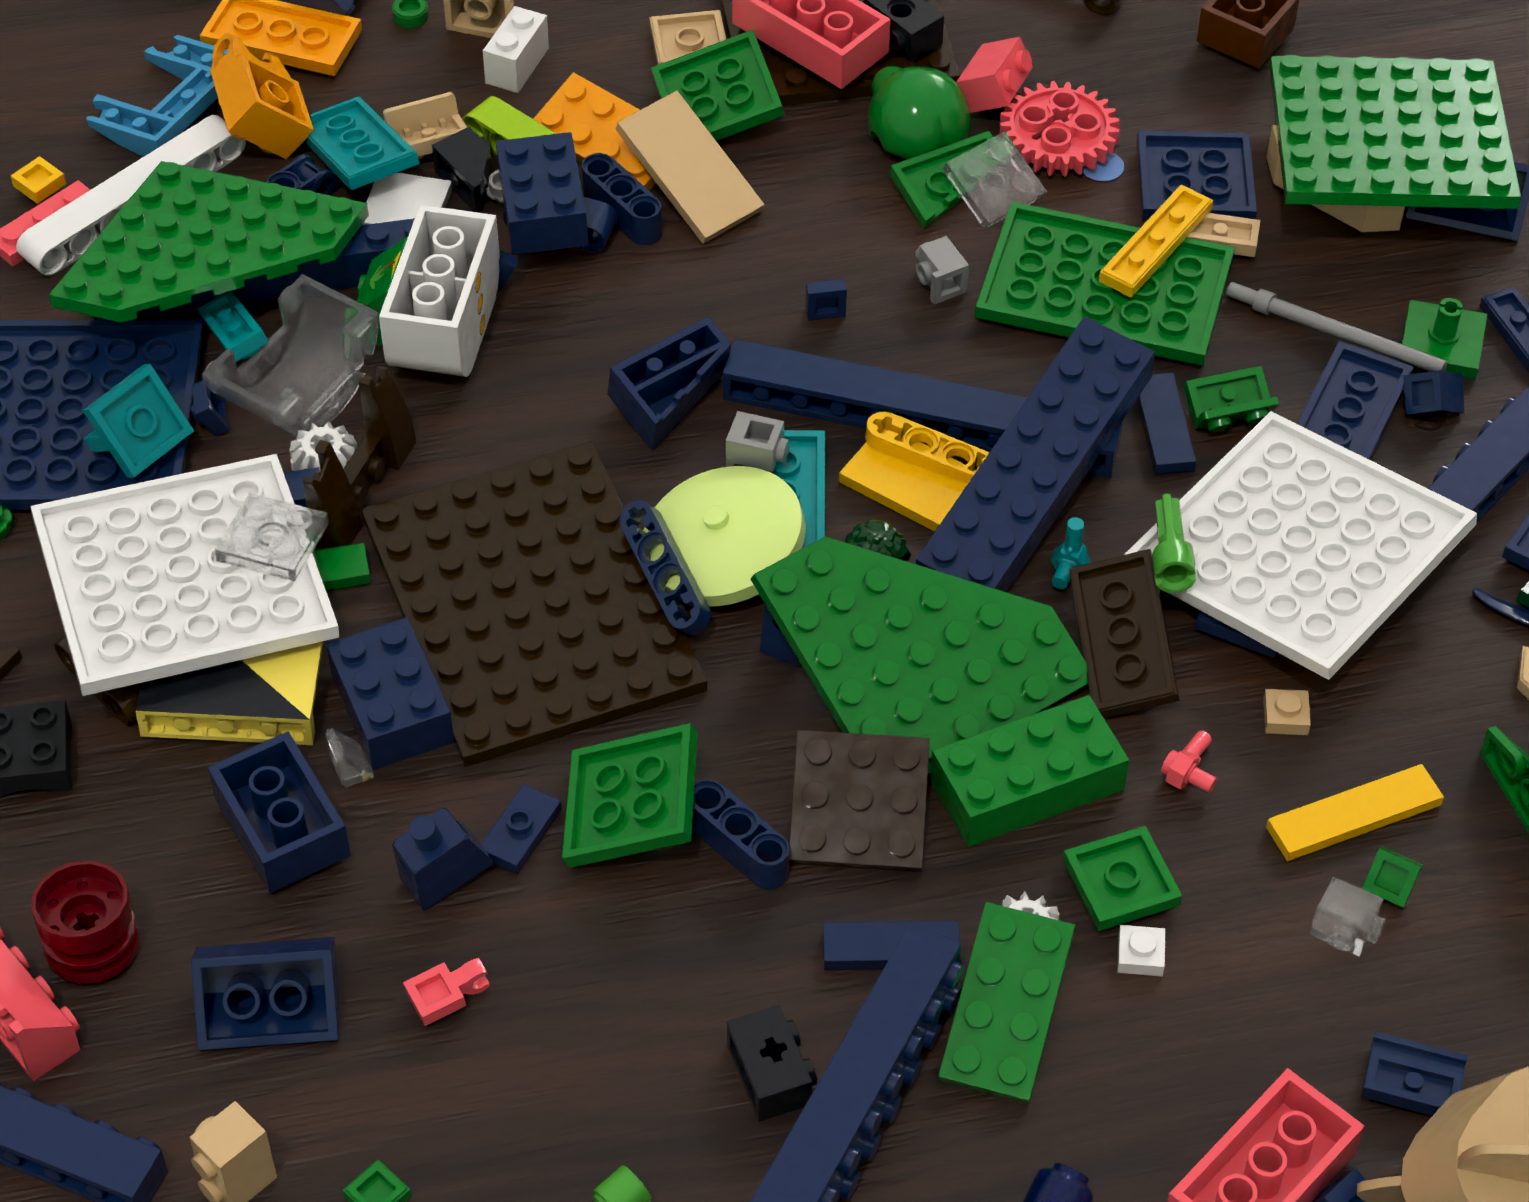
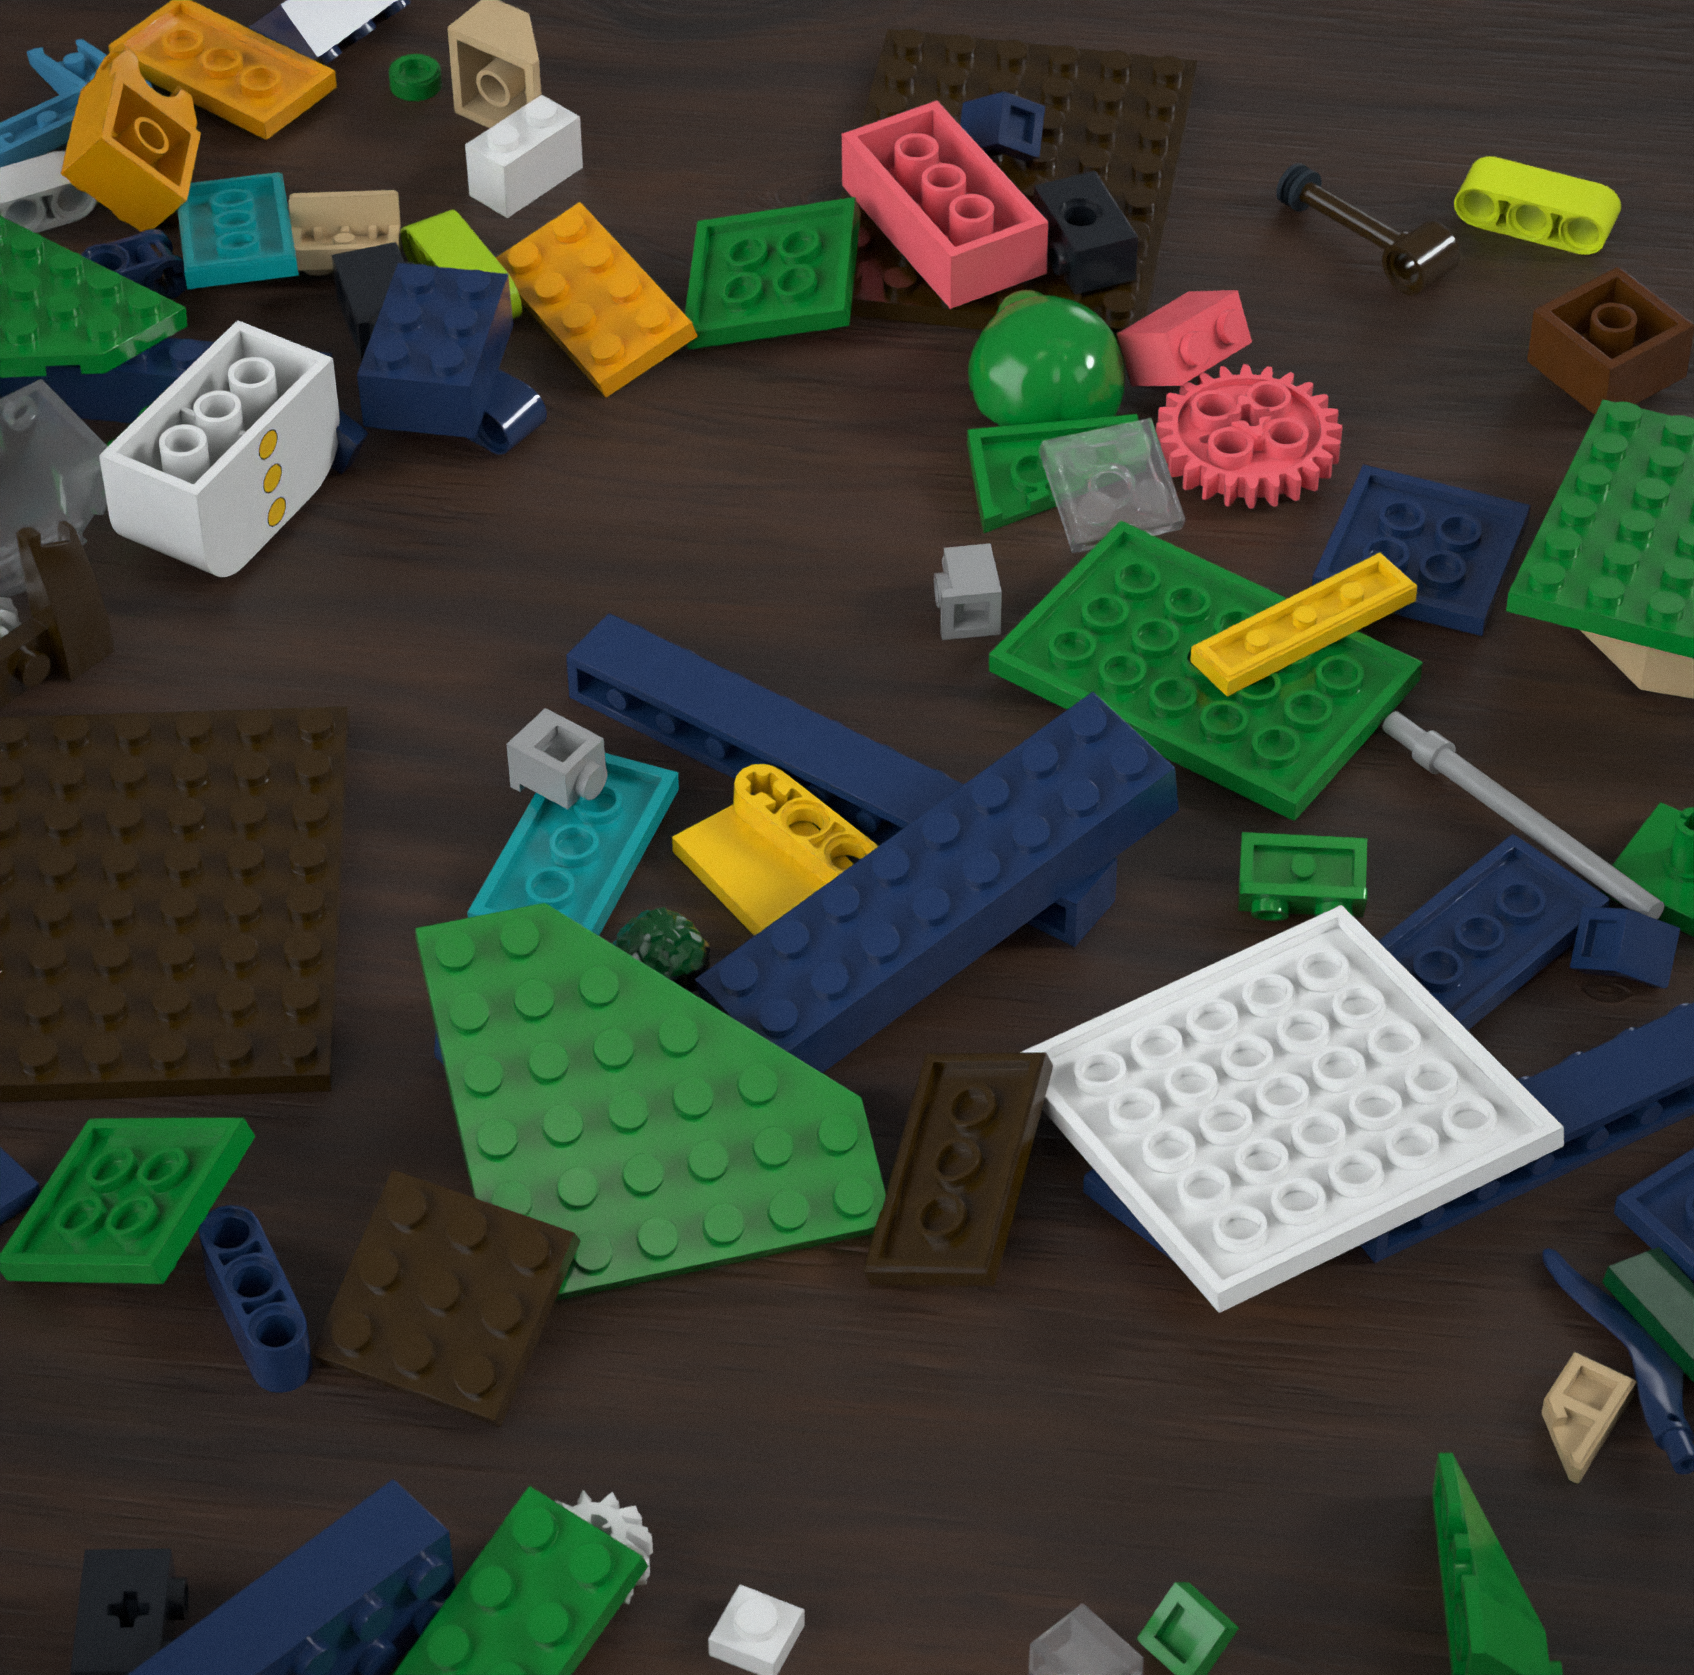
camera: 20 degrees right, 5 degrees down
(401, 195) = (278, 313): white tile -> none
(636, 206) = (567, 388): dark blue beam -> none
(660, 570) = (343, 962): dark blue beam -> none
(668, 379) = (491, 645): dark blue wedge -> none
(685, 33) = (778, 183): tan tile -> none
(689, 167) = (675, 366): tan tile -> none
(731, 528) = (446, 862): yellowish green dish -> none
(826, 299) = (778, 593): dark blue plate -> none
(872, 943) = (333, 1489): dark blue tile -> none
(1028, 770) = (717, 1324): green brick -> none
(1069, 553) = (945, 1033): teal piece -> none
(1106, 171) = (1297, 514): medium blue sticker -> none
(1122, 878) = (778, 1518): green plate -> none
(1166, 426) = (1191, 888): dark blue tile -> none
(1173, 557) = (1071, 1071): bright green piece -> none
(1182, 765) = (953, 1384): coral piece -> none
(1229, 231) = (1436, 641): tan plate -> none
(1286, 712) = (1158, 1350): tan plate -> none
(1354, 812) = (1186, 1524): yellow tile -> none

